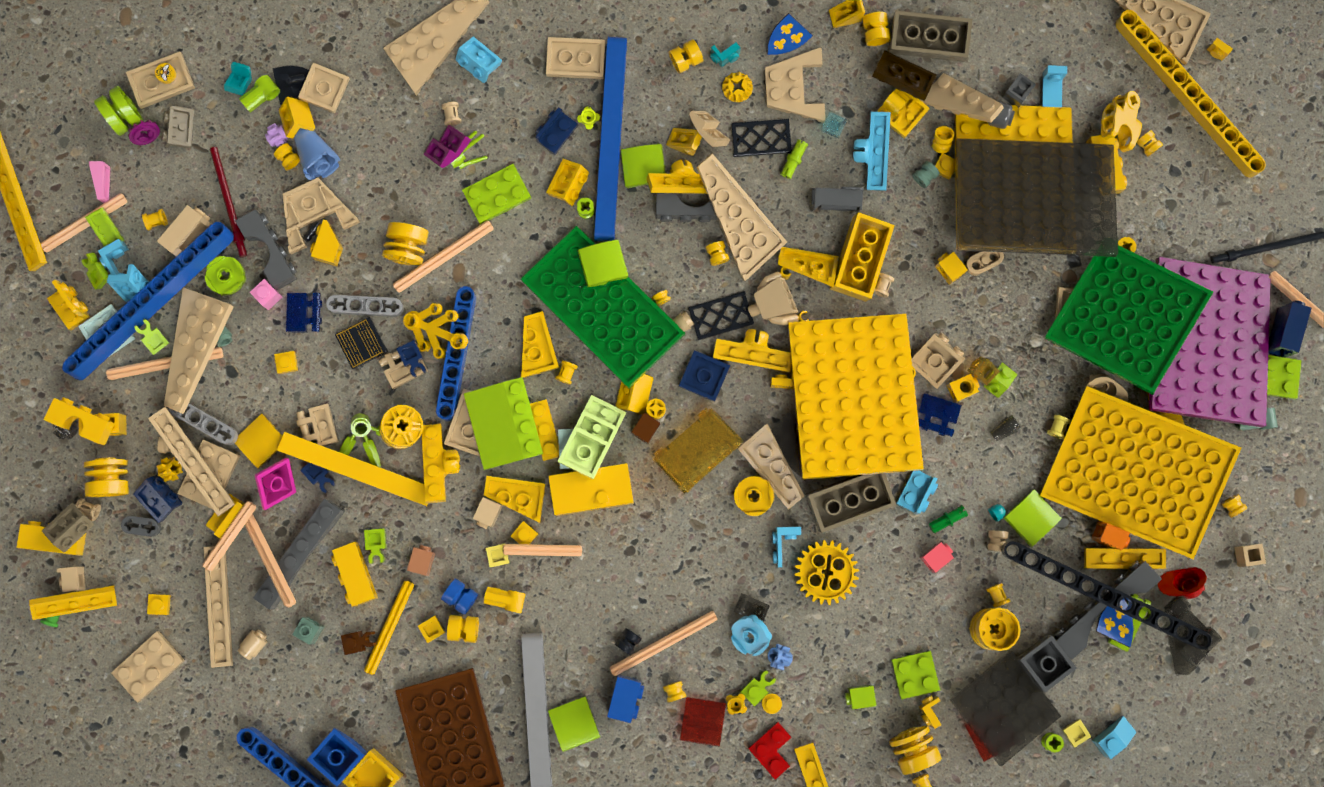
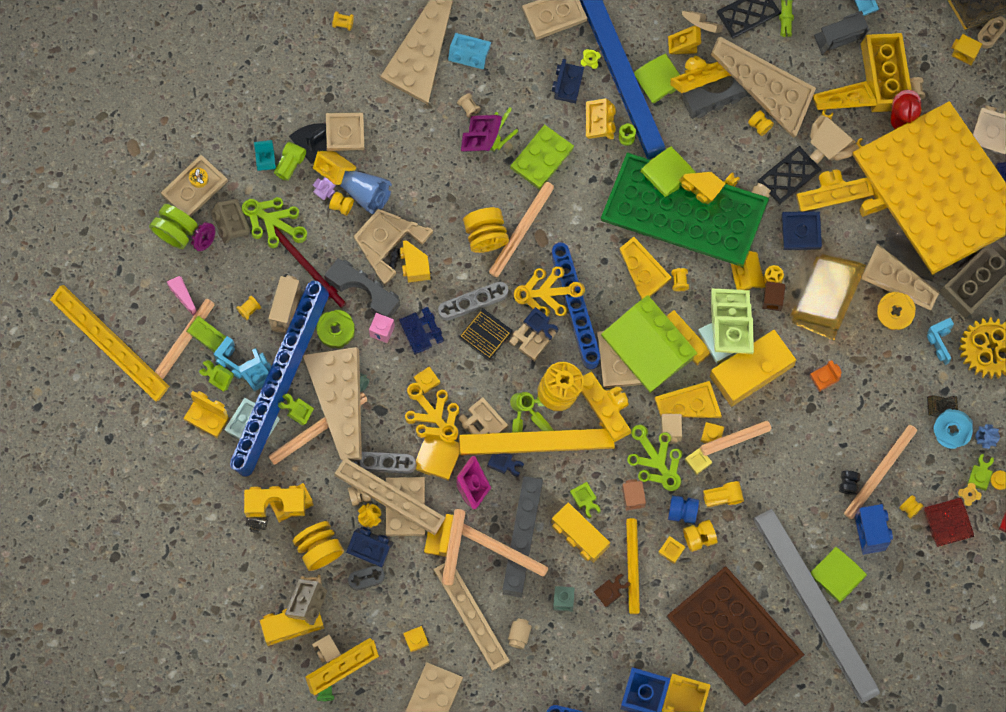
camera: 25 degrees left, 10 degrees down
(216, 143) = (272, 219): none -> lime plant
(274, 400) = (433, 415): none -> yellow plant
(458, 538) = (657, 460): none -> lime plant
(627, 292) = (703, 185): none -> yellow slope
(657, 528) = (826, 376): none -> orange bracket
(861, 302) = (905, 108): none -> red piece

